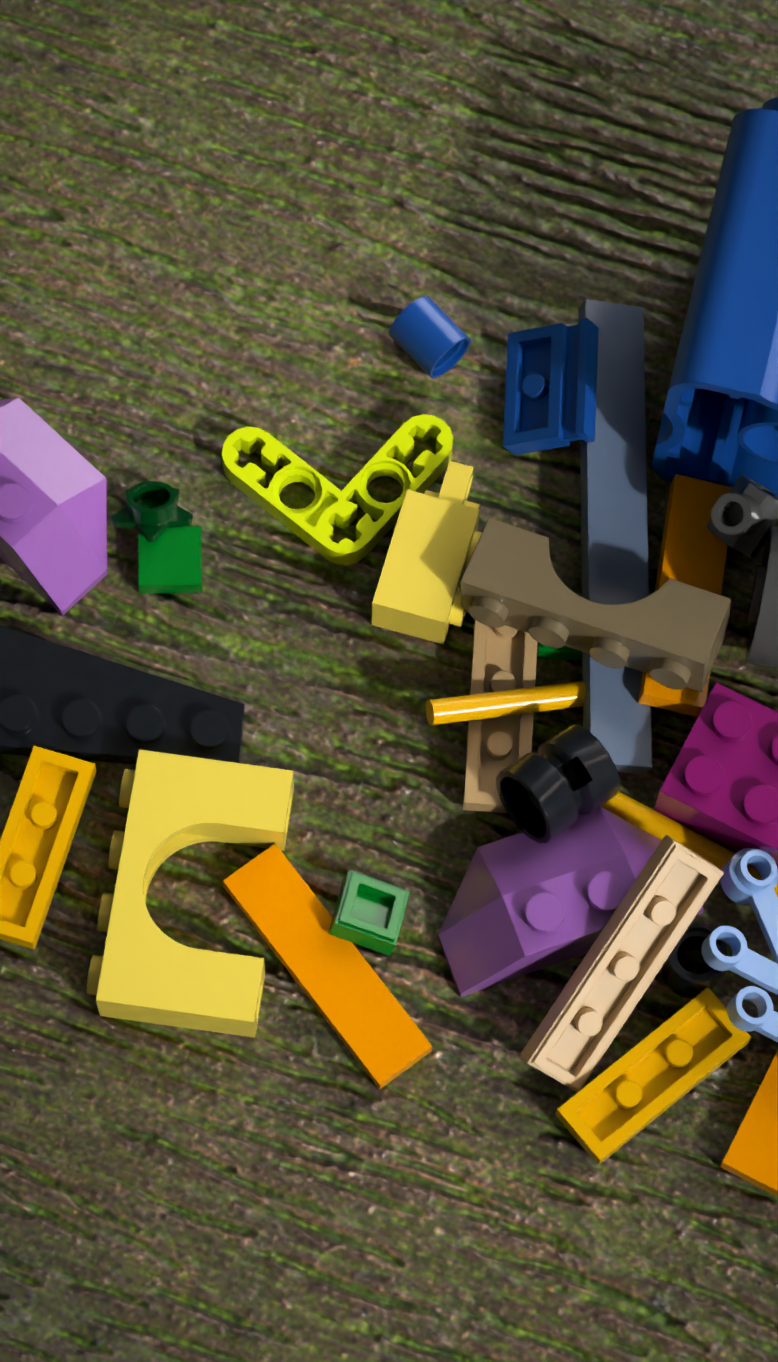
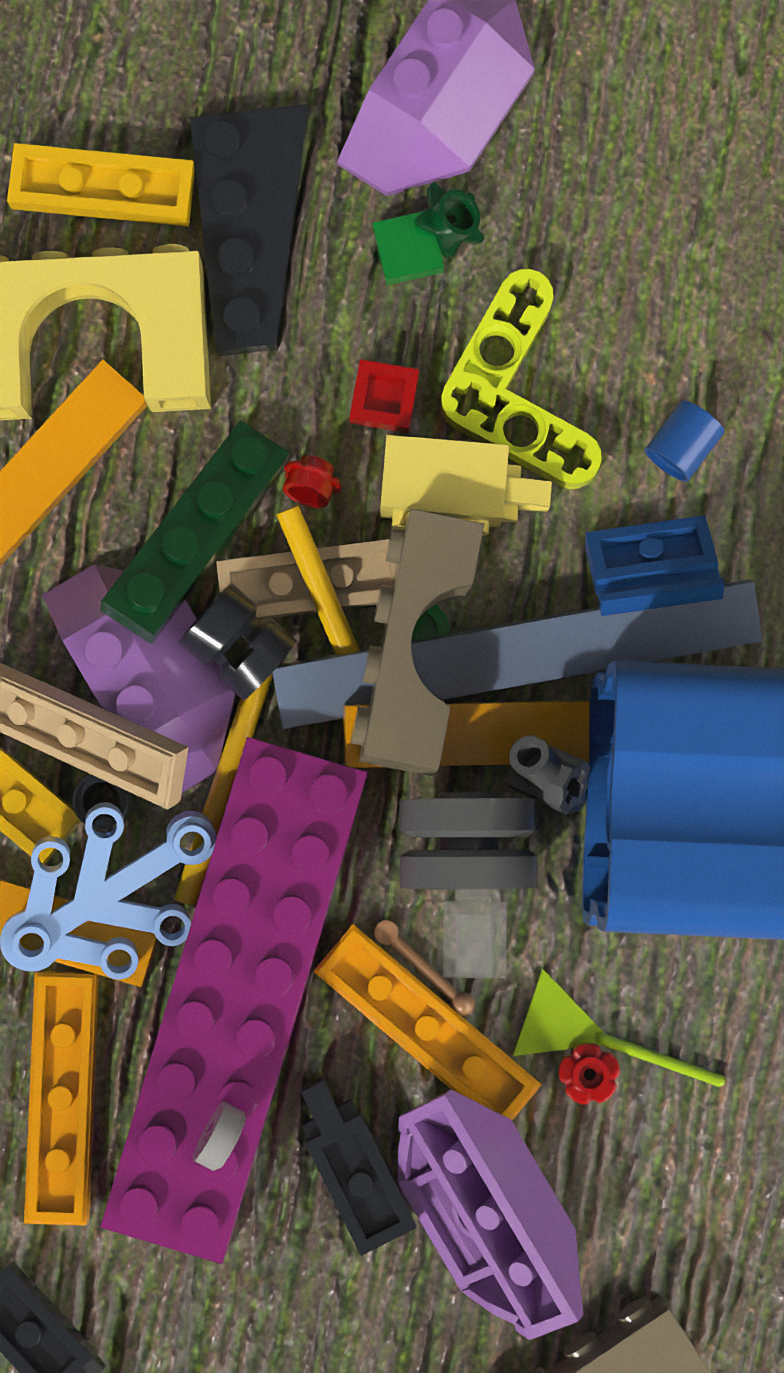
camera: 80 degrees right, 15 degrees up
(323, 609) = (384, 396): none -> red plate
(369, 912) = (97, 496): green tile -> none
(397, 697) = (310, 481): none -> red plate
(432, 811) = (194, 532): none -> dark green plate

